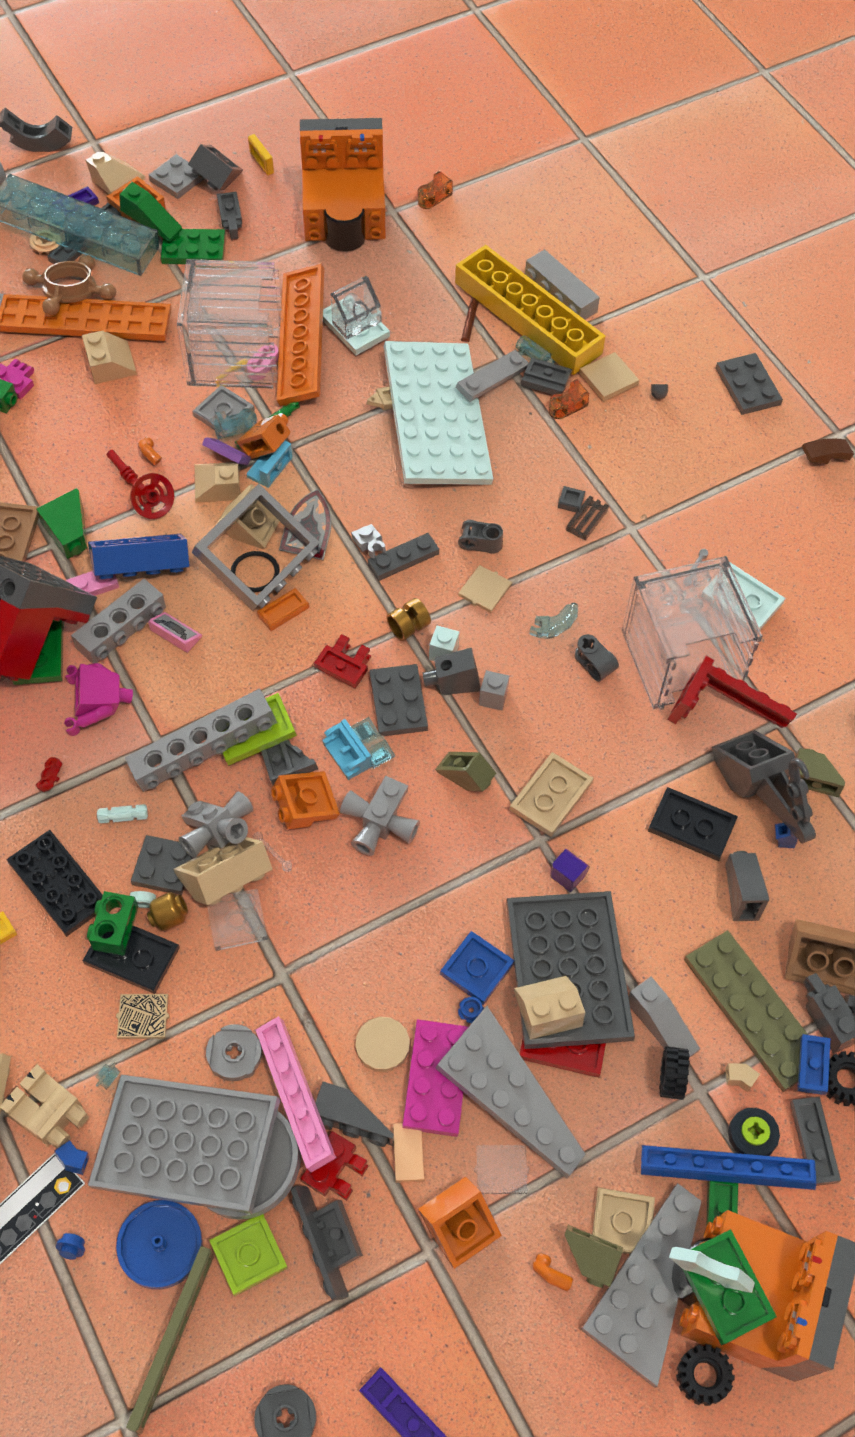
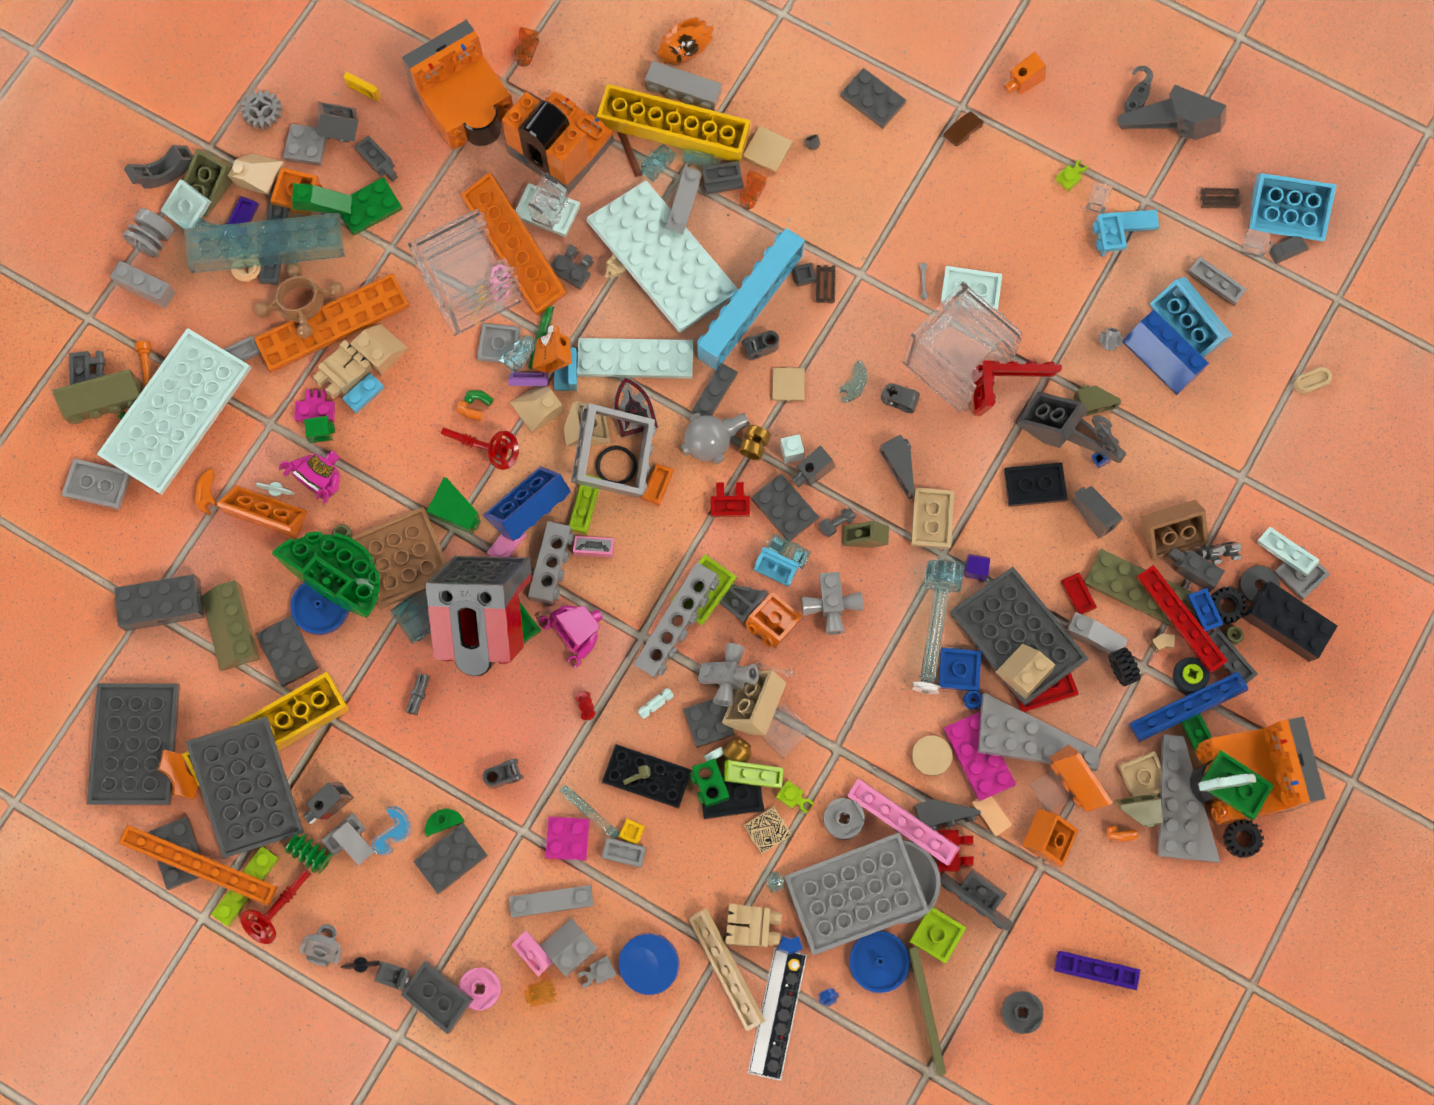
camera: 30 degrees left, 15 degrees up
(34, 166) = (185, 205): none -> light aqua plate
(53, 871) = (644, 772): none -> olive hand
(59, 358) = (342, 370): none -> tan hips
(64, 160) = (209, 176): none -> olive slope
(65, 388) = (363, 393): none -> medium azure plate
(159, 132) = (259, 108): none -> light grey gear
(167, 942) = (753, 774): none -> lime tile
(171, 443) = (472, 395): none -> green arm
(192, 592) = (583, 508): none -> lime tile
(195, 995) = (791, 796): none -> lime plate
(339, 386) = (571, 272): none -> dark grey plate
(346, 487) = (635, 358): none -> light aqua plate
(366, 592) = (709, 437): none -> light grey piece
(370, 539) = (683, 392): light grey plate -> none
(403, 266) = (555, 137): none -> piece
(430, 741) = (828, 527): none -> dark grey bar
(490, 334) = (657, 162): none -> clear light blue leg
(494, 690) = (848, 463): light grey brick -> none
(497, 487) = (750, 298): none -> medium azure brick
(520, 858) = (943, 578): none -> clear light blue piece
(534, 1168) = (1079, 779): none -> orange slope
(553, 717) = (898, 458): none -> dark grey slope
(586, 249) = (685, 41): none -> orange head
(671, 965) = (1078, 594): none -> red tile
(779, 1060) = (1182, 619): none -> red plate
(842, 1115) = (1238, 634): none -> olive plate

